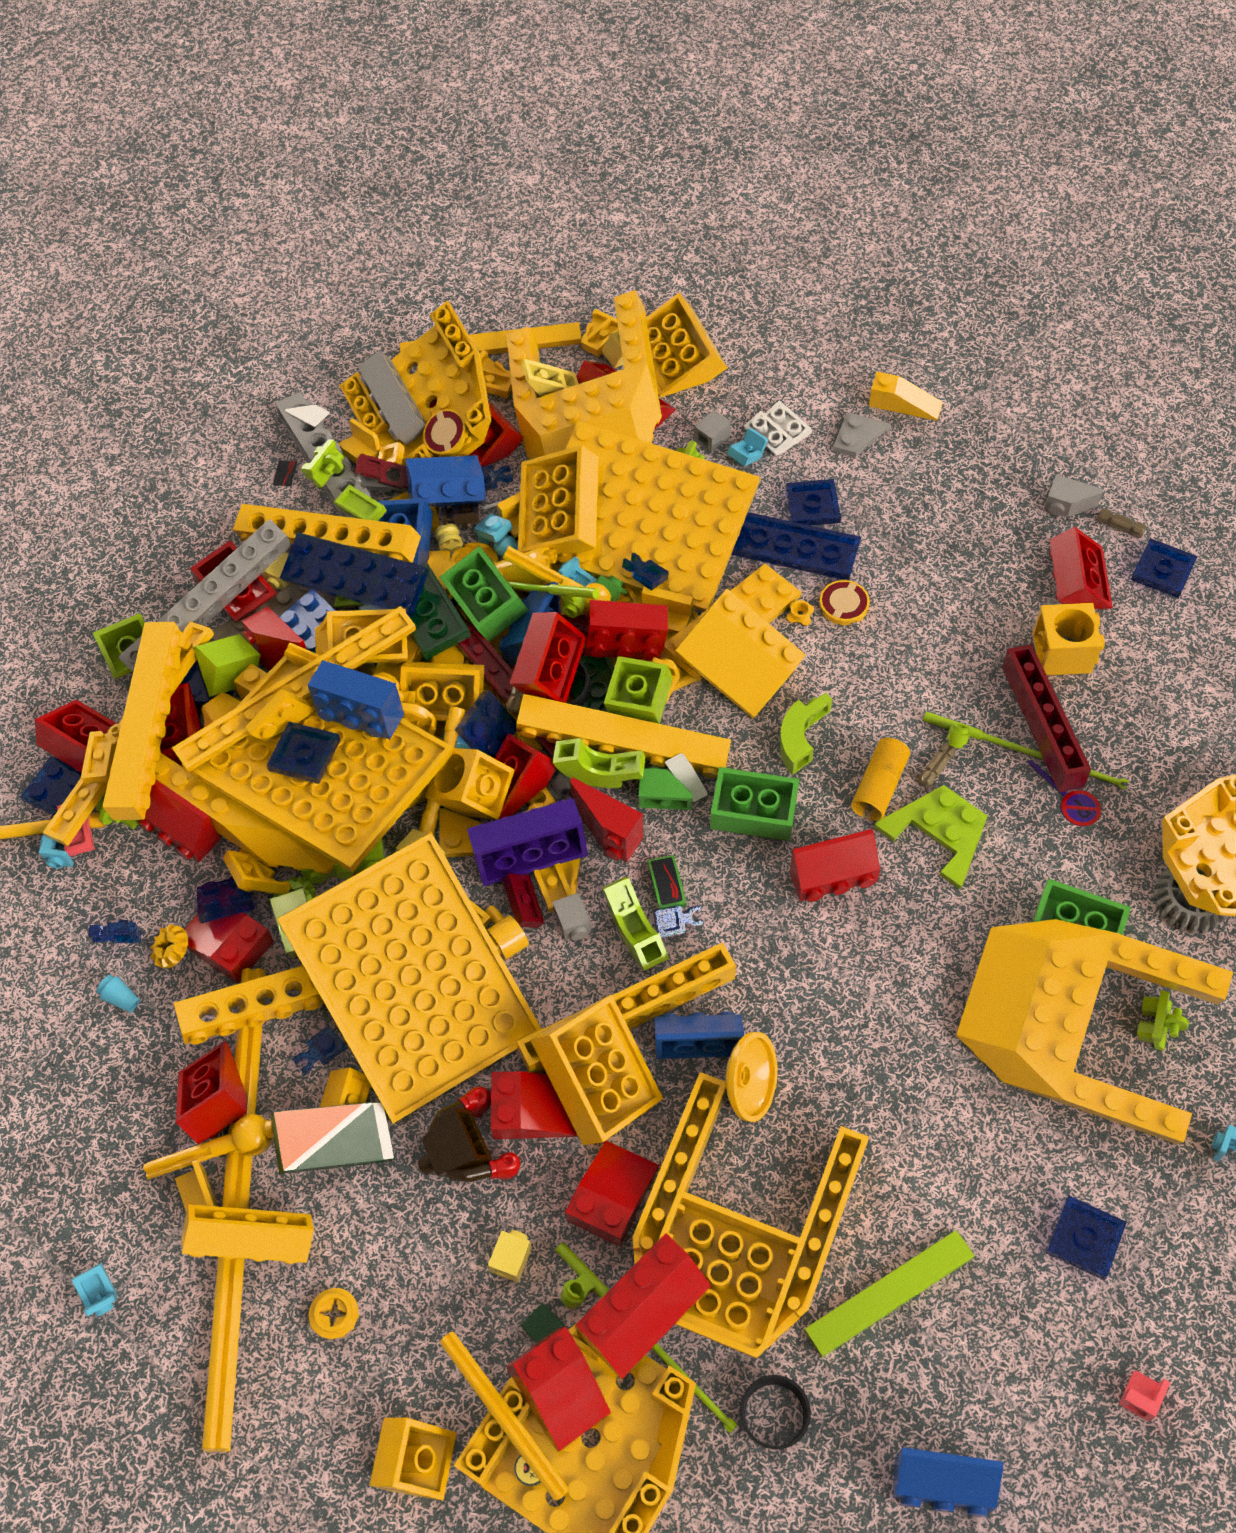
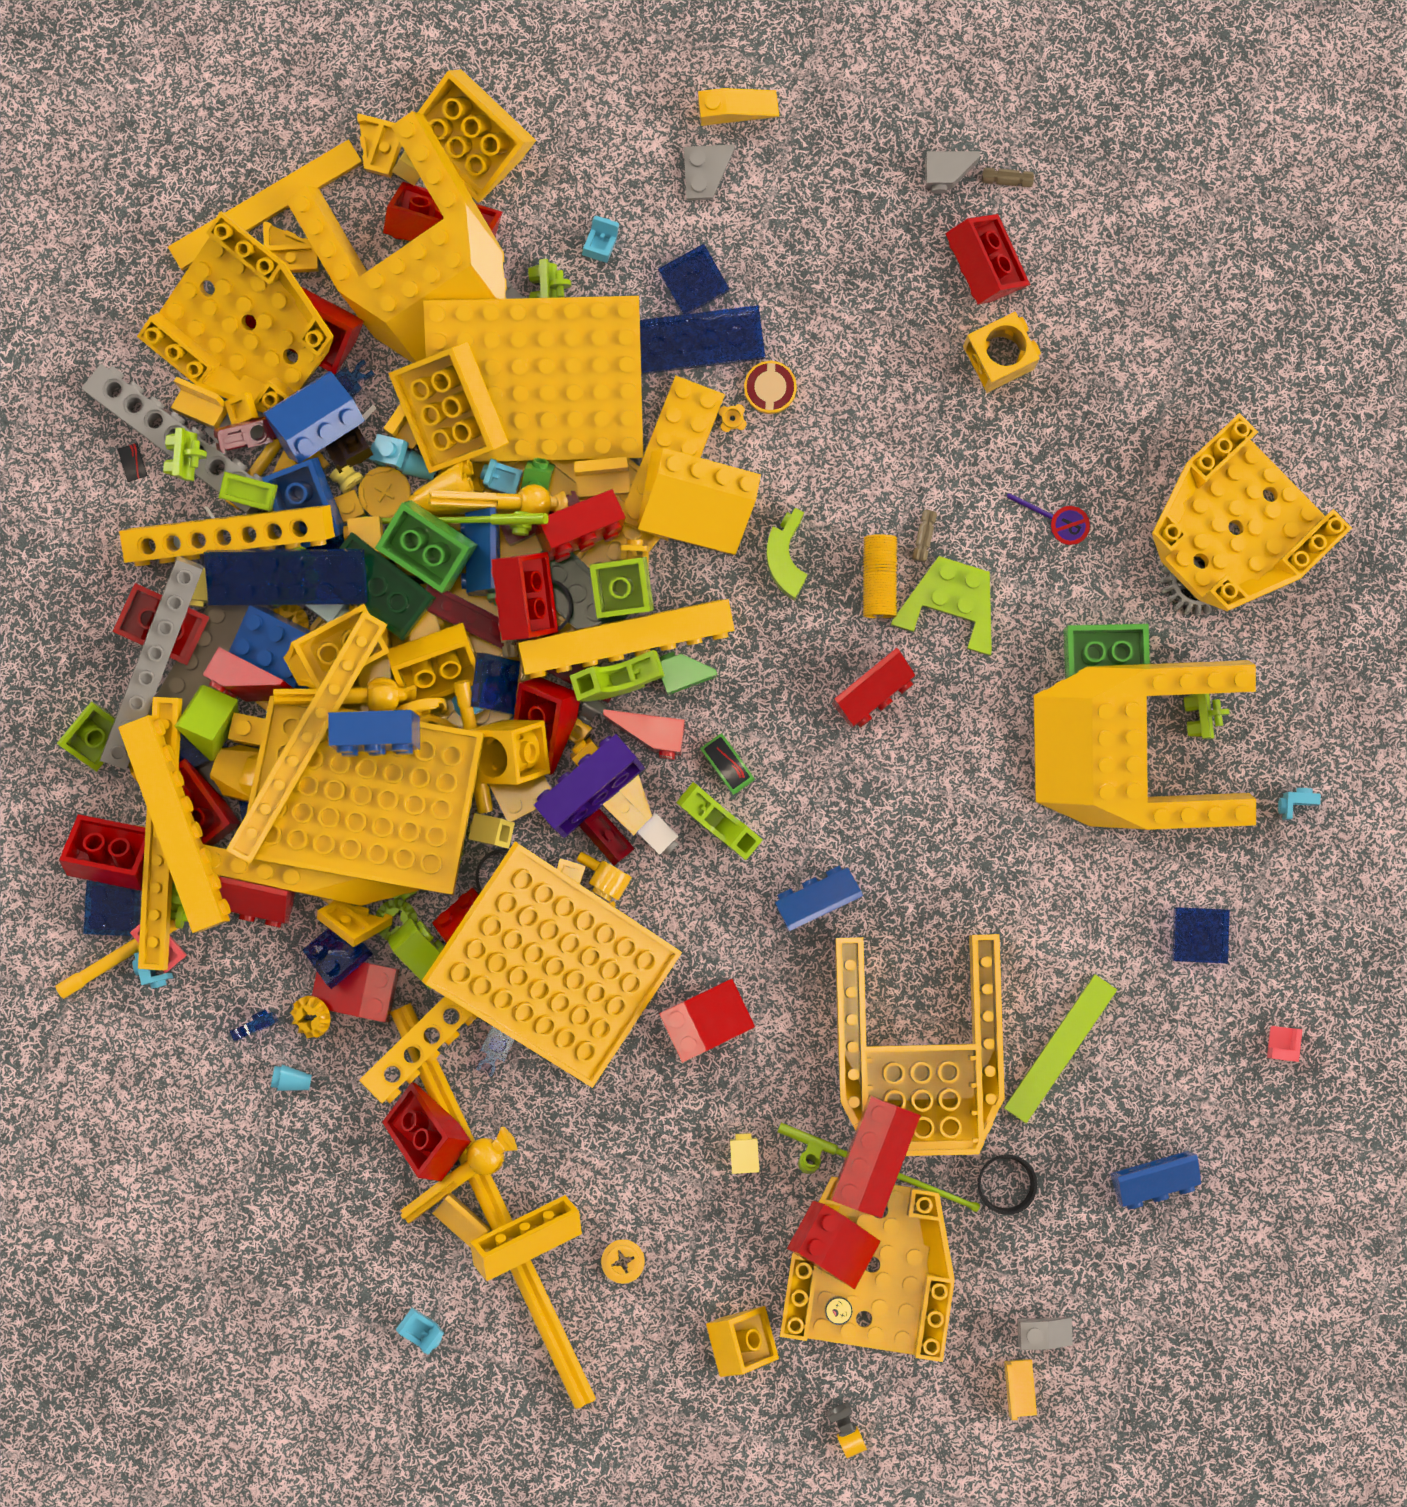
camera: 25 degrees left, 25 degrees up
(100, 755) = (152, 873): yellow hinge -> none
(277, 713) = (307, 774): yellow wing -> none
(303, 752) = (349, 800): clear blue plate -> none
(310, 414) = (127, 389): white sticker -> none
(331, 1137) = (552, 1128): tile -> none
(345, 1088) = (538, 1087): yellow panel -> none
(392, 398) = (207, 336): light grey brick -> none
(445, 432) = (286, 360): tile -> none
(457, 1147) = (660, 1087): dark brown torso -> none
(504, 1416) = (802, 1285): yellow axle -> none
(541, 1323) = (795, 1196): dark green tile -> none
(546, 378) = (365, 248): light yellow slope -> none
(597, 1070) = (748, 973): yellow slope -> none
(611, 1193) = (803, 1064): red slope -> none
(647, 572) = (572, 449): plate -> none
(658, 994) = (747, 903): yellow brick -> none
(672, 919) = (749, 797): clear blue plate -> none
(686, 775) = (702, 651): white sticker -> none
(712, 431) = (555, 230): light grey brick -> none
(751, 1076) = (880, 922): yellow dish -> none
(754, 804) = (775, 653): bright green brick -> none
(780, 428) = (619, 197): white slope -> none
(960, 733) = (935, 496): lime piece -> none
(1046, 718) = (1009, 449): dark red brick -> none
(1164, 568) = (1066, 218): clear blue plate -> none

